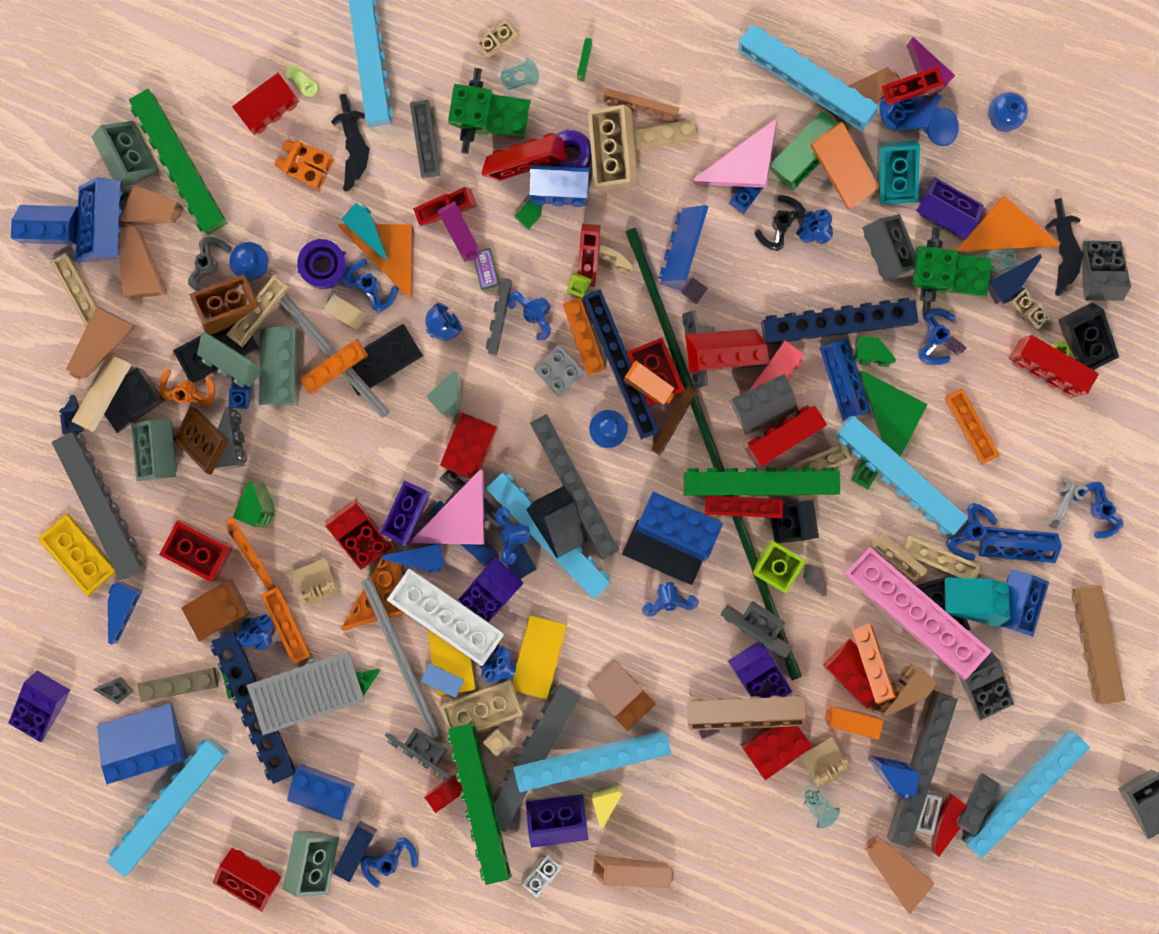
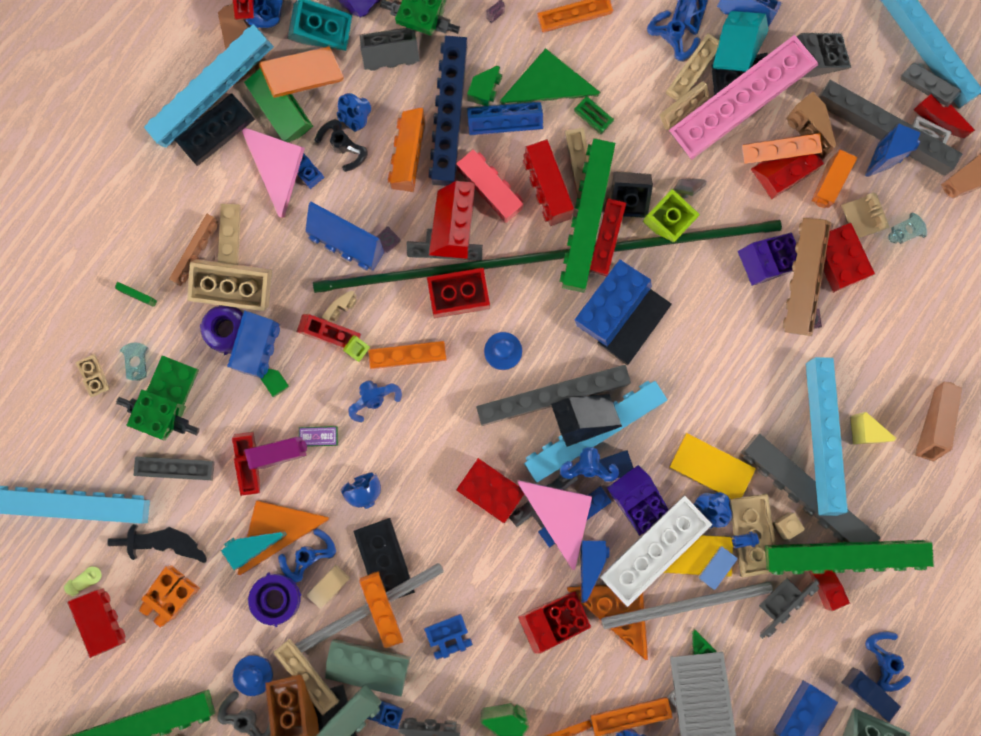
camera: 80 degrees left, 5 degrees down
(314, 582) = (593, 677): tan hinge -> none
(328, 433) = (445, 631): none -> blue plate
(405, 513) = (544, 568): dark purple slope -> none
(448, 395) = (437, 500): sand green slope -> none
(474, 701) = (745, 540): none -> blue pin
(500, 309) = (361, 430): dark grey plate -> none
(520, 158) = (217, 376): red slope -> none
(541, 876) = (927, 511): white slope -> none
(556, 821) = (876, 484): dark purple slope -> none
(559, 370) = (435, 385): light grey hinge -> none
(619, 363) = (443, 324): dark blue brick -> none
(621, 695) = (766, 394): slope -> none
(649, 384) = (470, 298): orange slope -> none
(669, 600) = (682, 328): blue piece -> none
(674, 420) = (509, 285): reddish brown beam -> none
(760, 625) = (724, 246): dark grey bracket -> none
(764, 404) = (513, 194): dark grey slope -> none
(767, 94) = (214, 129): none -> black tile
(788, 290) = (408, 150): none -> orange slope
(901, 476) = (608, 85): medium azure brick -> none
(936, 336) = (483, 26): blue piece -> none

